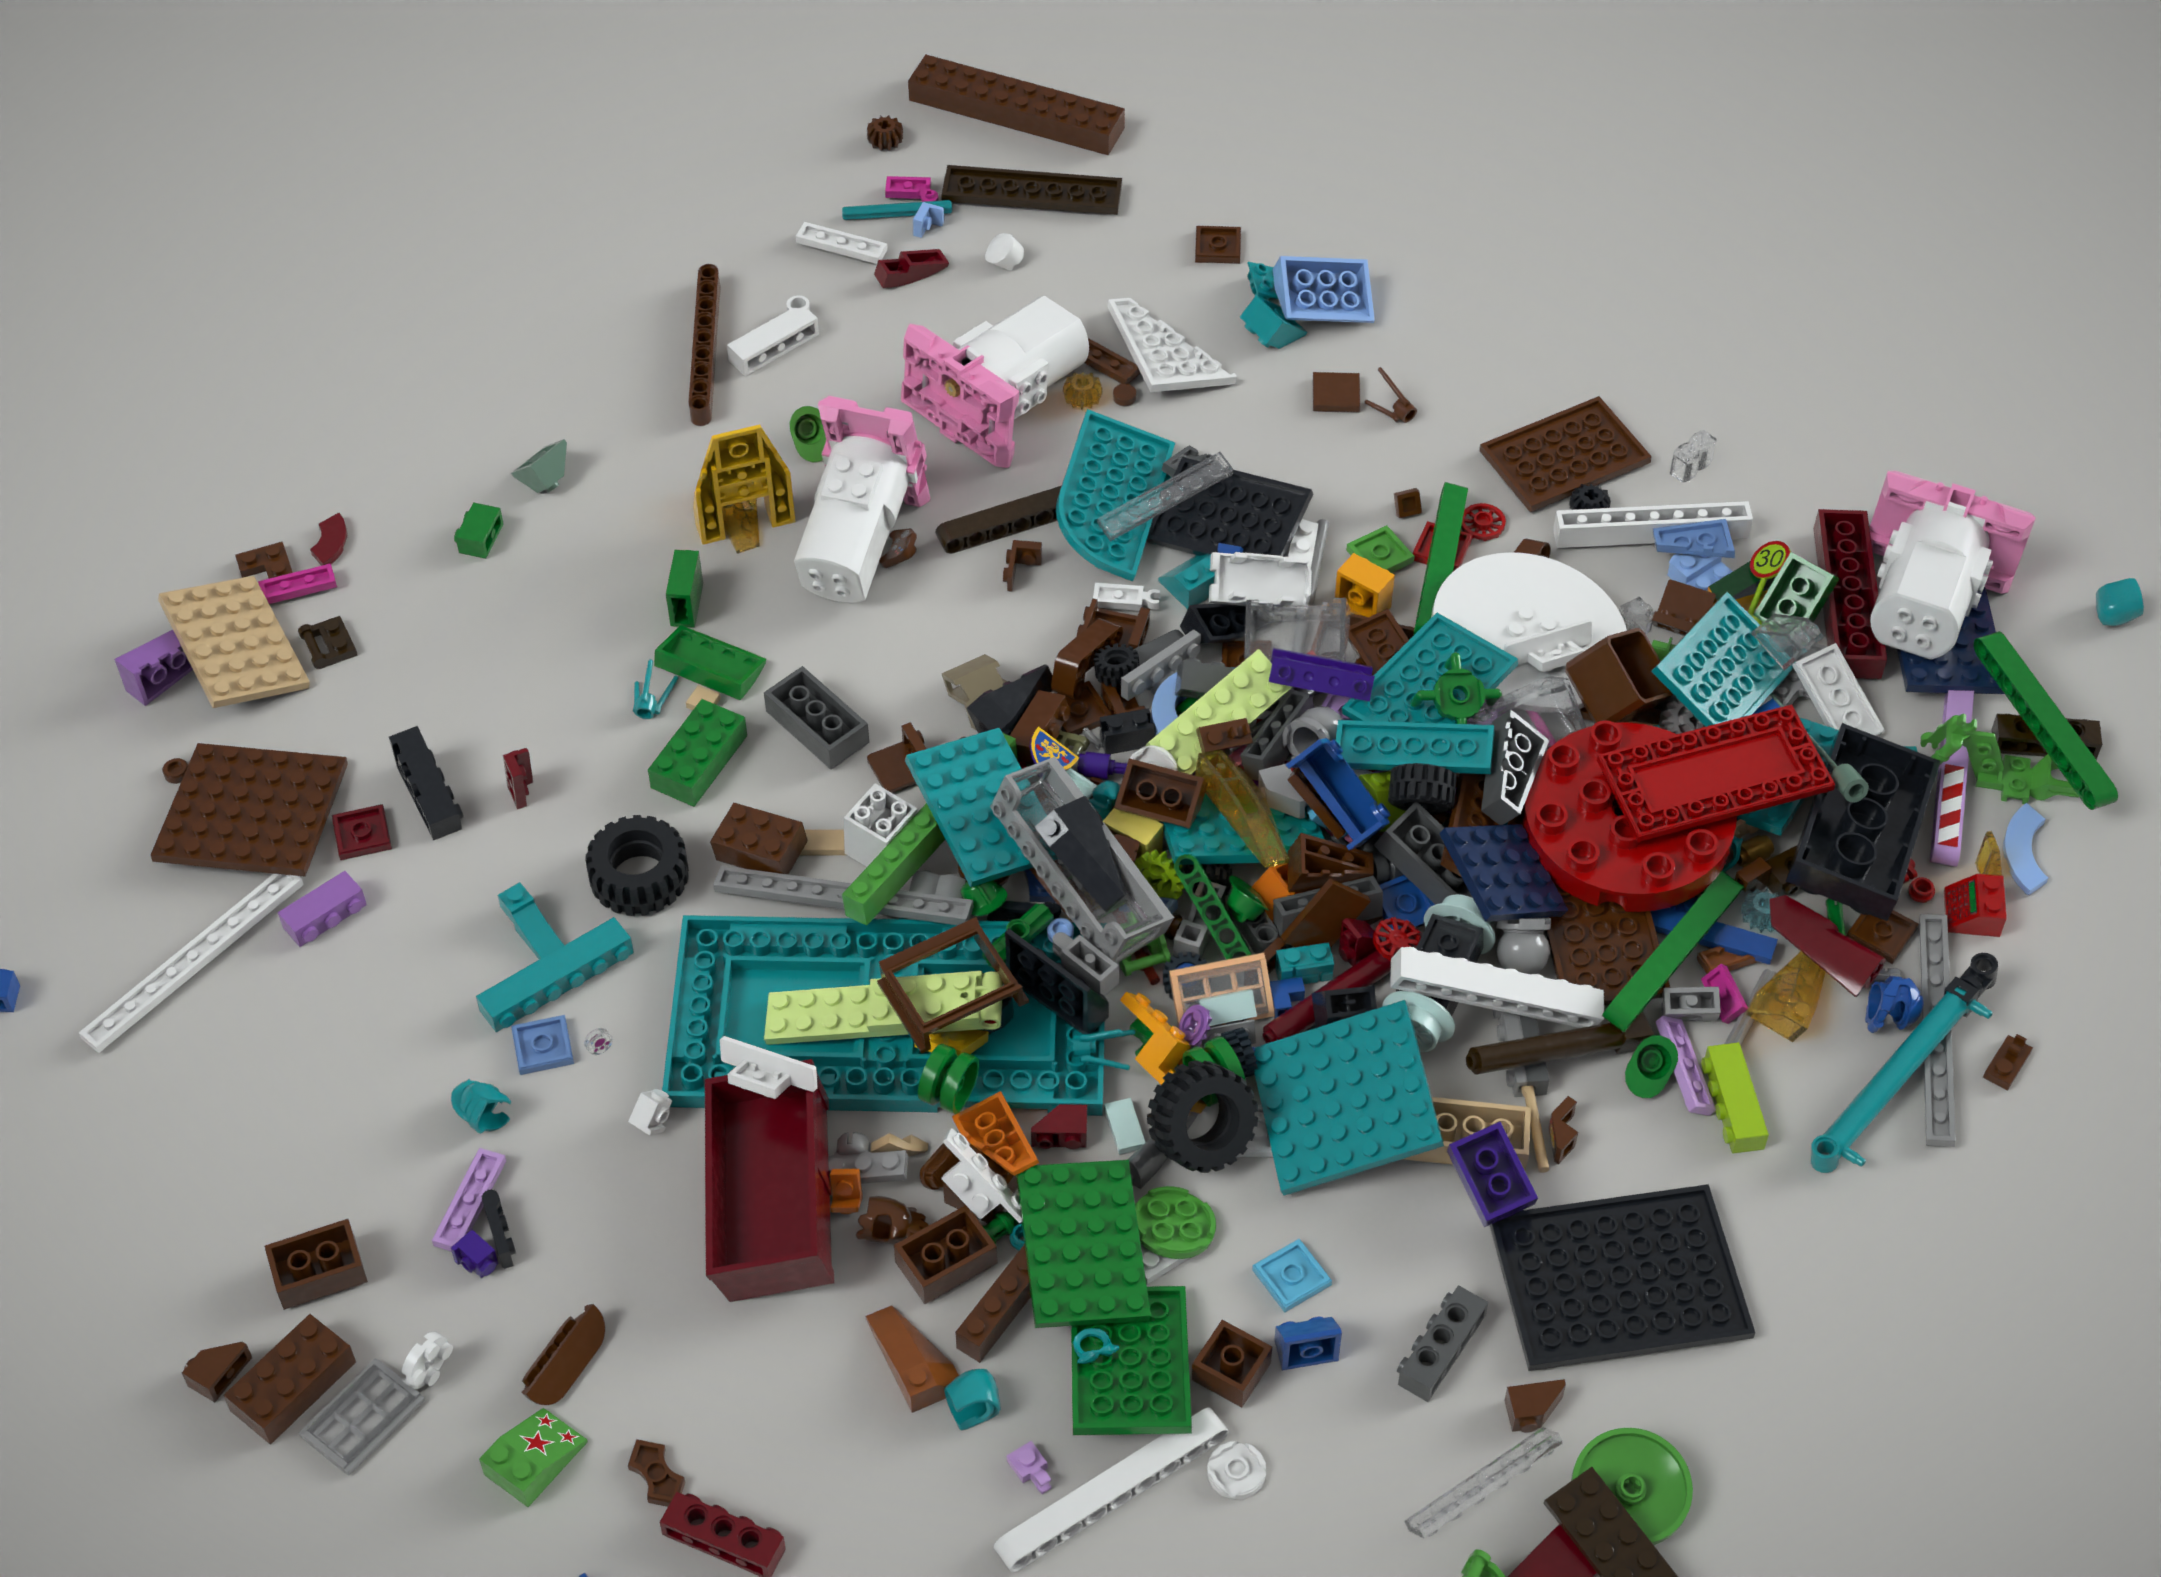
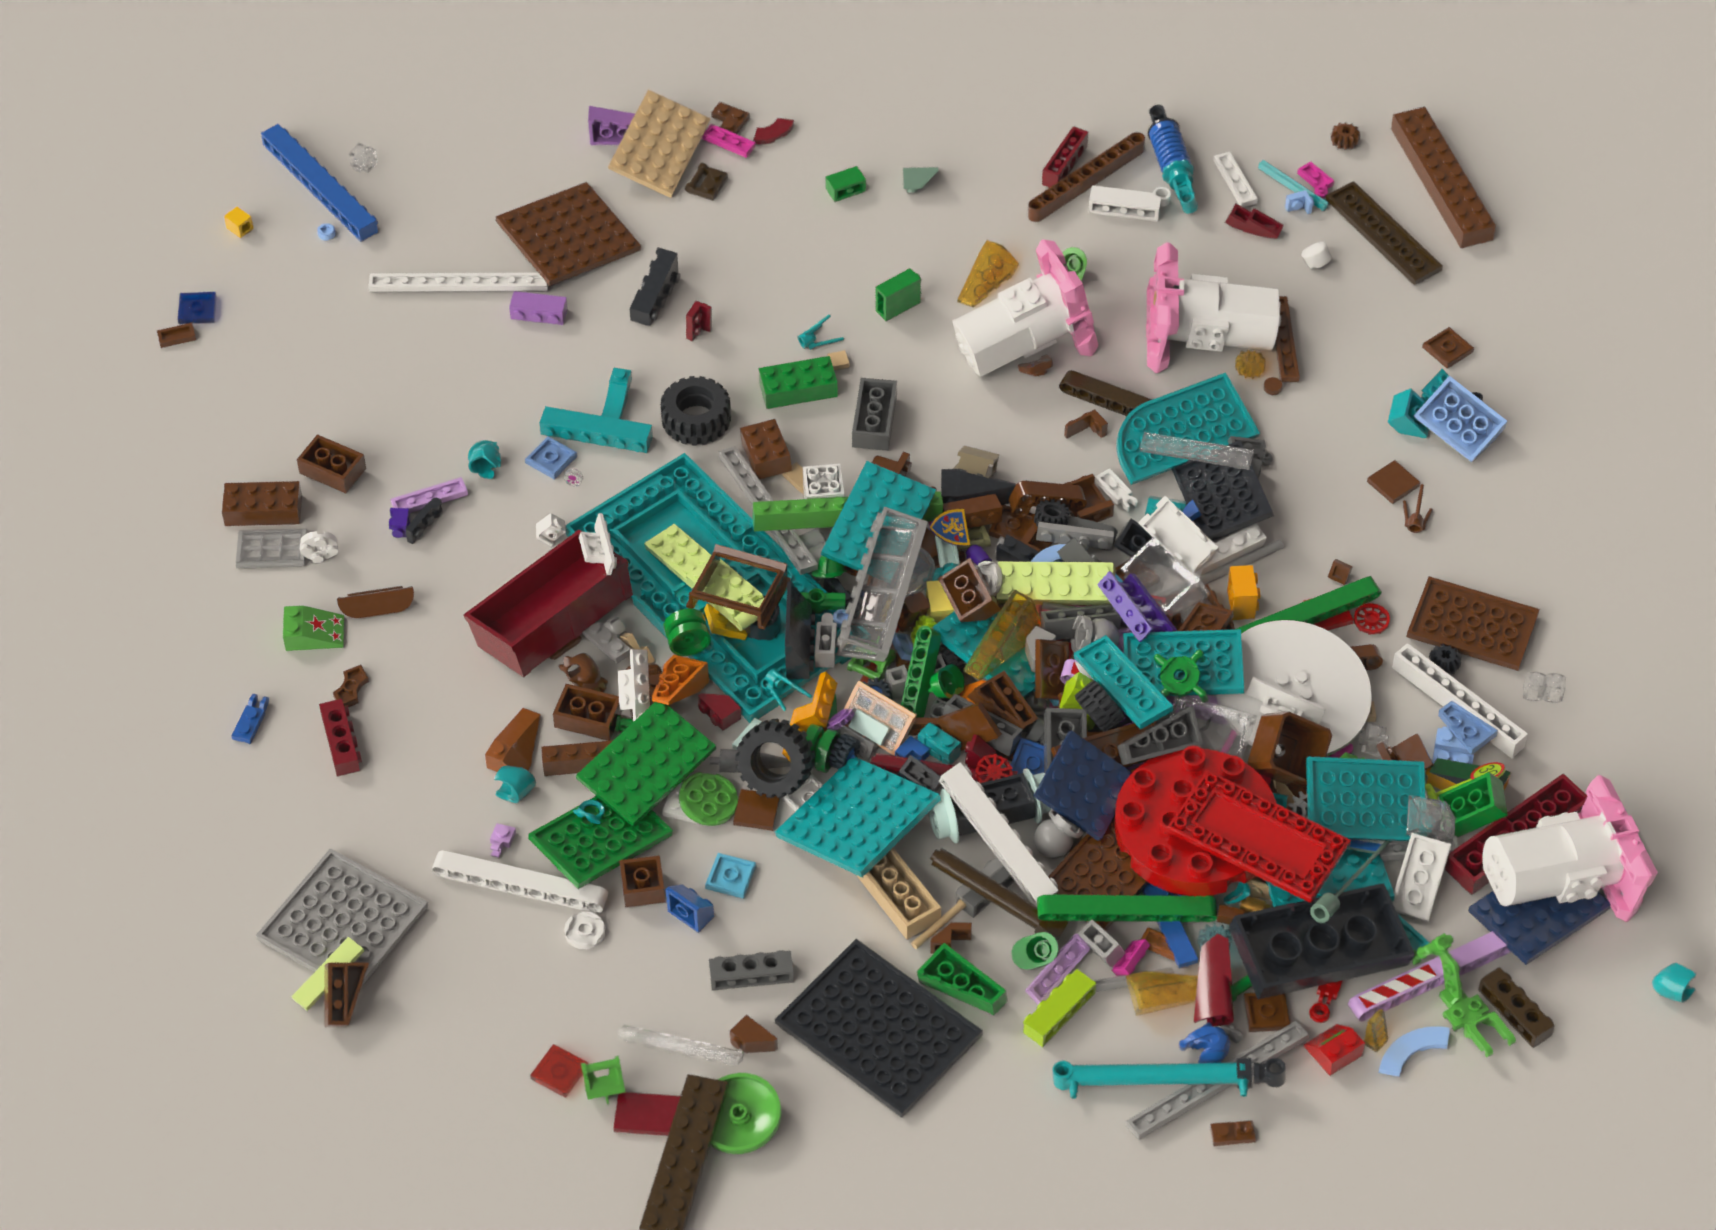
camera: 50 degrees right, 0 degrees up
(174, 770) = (561, 185): reddish brown tile -> none
(216, 1369) = (241, 470): reddish brown slope -> none
(361, 832) = (603, 287): dark red tile -> none
(664, 341) = (1065, 156): none -> dark red brick
(709, 662) = (866, 343): green slope -> none
(739, 469) = (982, 249): yellow wedge -> none
(765, 264) = (1172, 157): none -> piece
(846, 1190) = (586, 644): orange bracket -> none
(1080, 843) = (883, 577): black wedge -> none
(1162, 353) = (1324, 380): white wing -> none
(1224, 735) = (1041, 592): reddish brown plate -> none
(1228, 1191) = (756, 810): none -> reddish brown tile
(1342, 791) = (1055, 667): blue windscreen -> none
(1382, 549) = (1286, 584): bright green plate -> none
(1492, 1174) = (871, 915): dark purple brick -> none
(1631, 1156) = (960, 979): none -> green wedge
(2045, 721) = (1512, 991): green beam -> none

